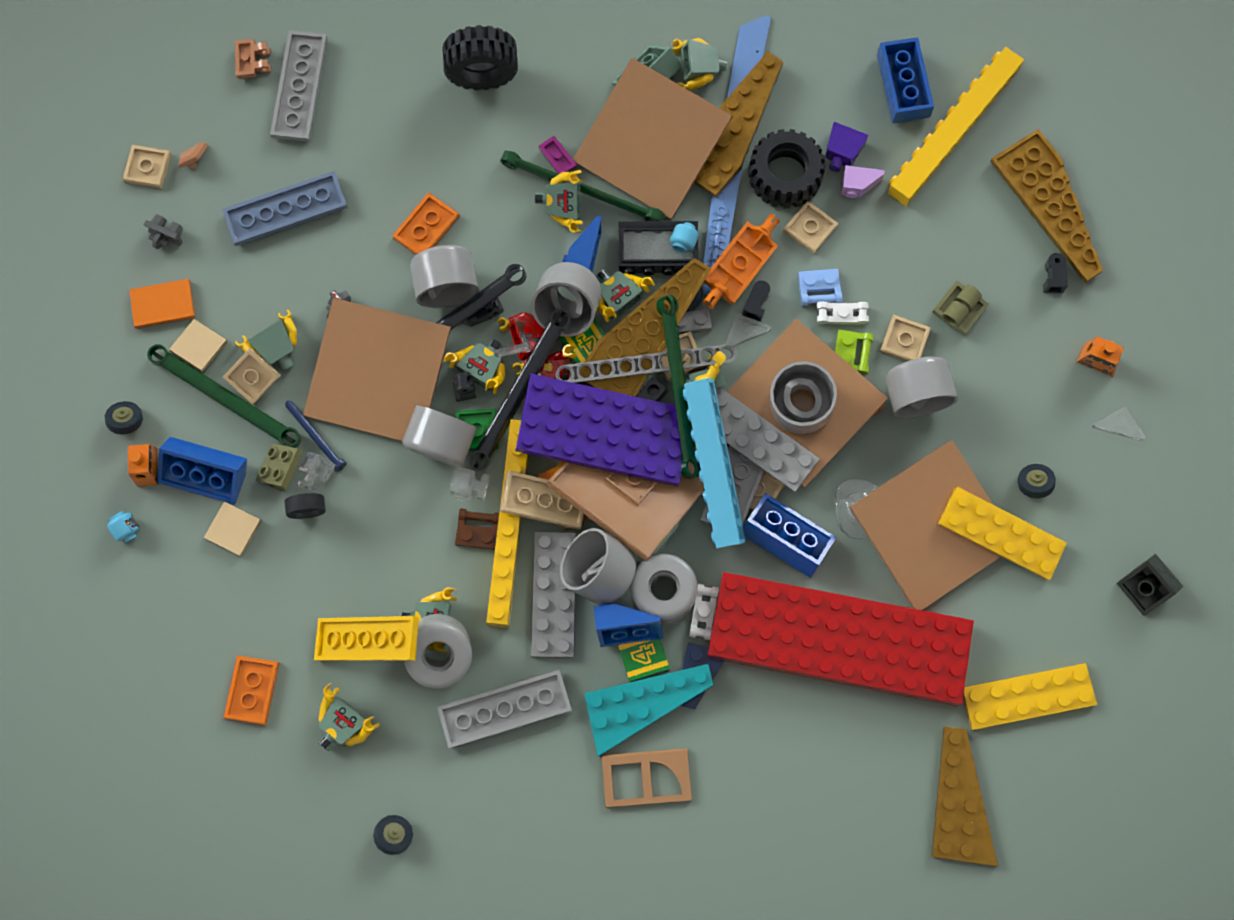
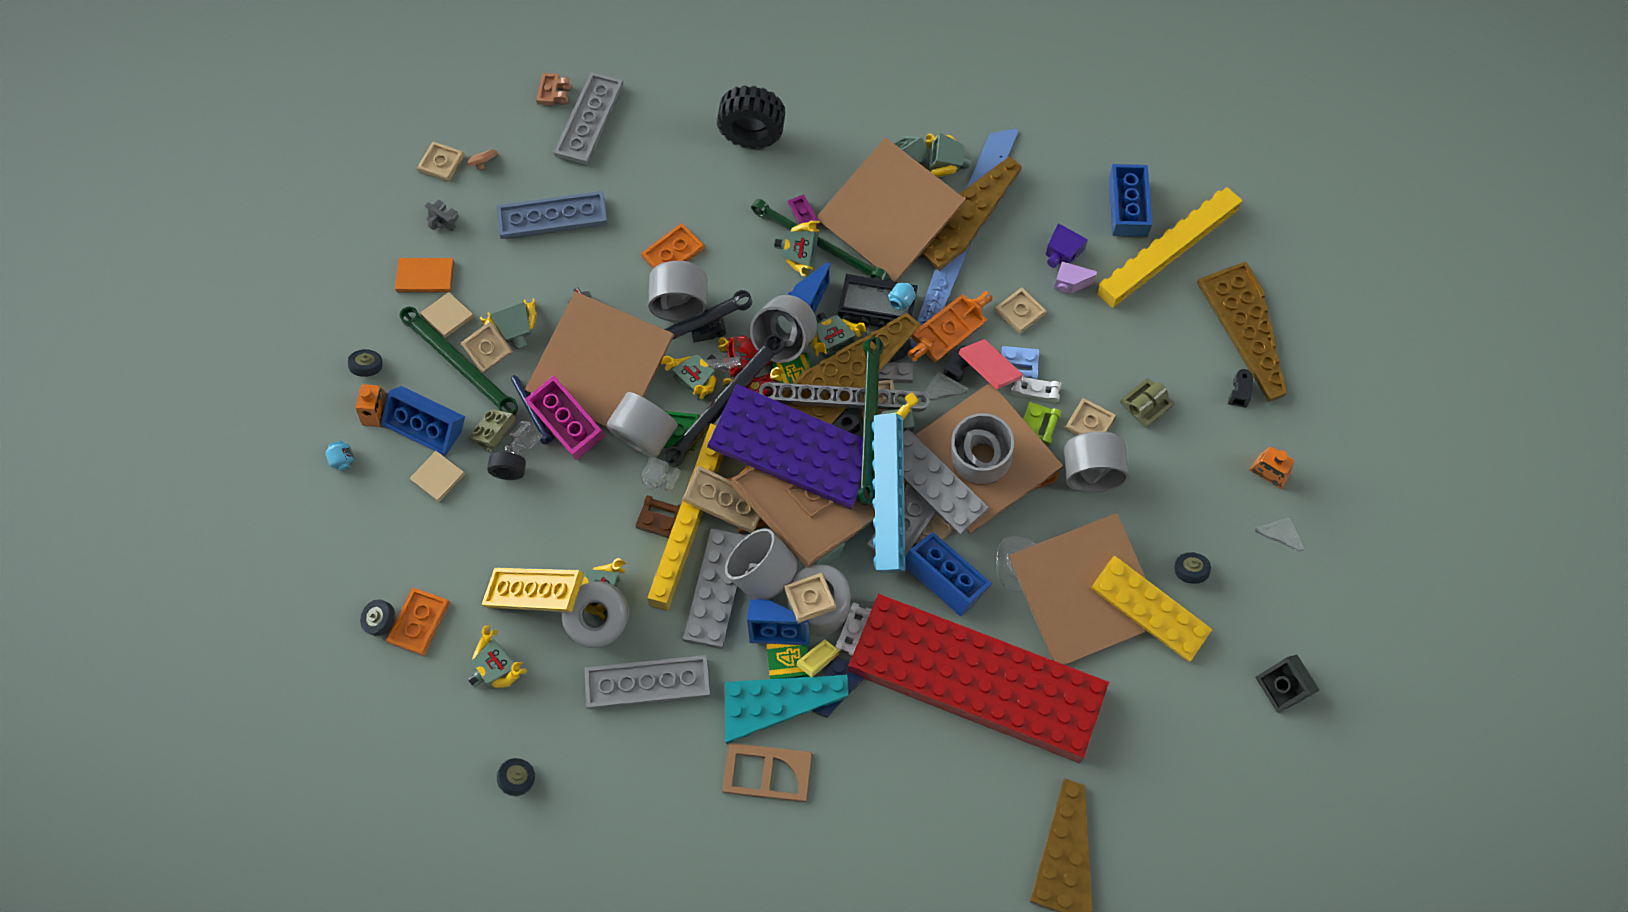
camera: 10 degrees right, 10 degrees down
(208, 695) = (377, 617): none -> black wheel
(354, 441) = (565, 417): none -> dark pink brick
(464, 386) = (675, 389): black leg -> none
(656, 594) = (810, 597): none -> tan tile
(674, 650) = (818, 658): none -> light yellow tile
(786, 145) = (1011, 236): black tyre -> none
(791, 297) = (990, 364): none -> coral tile
(1029, 696) = (1151, 766): yellow plate -> none

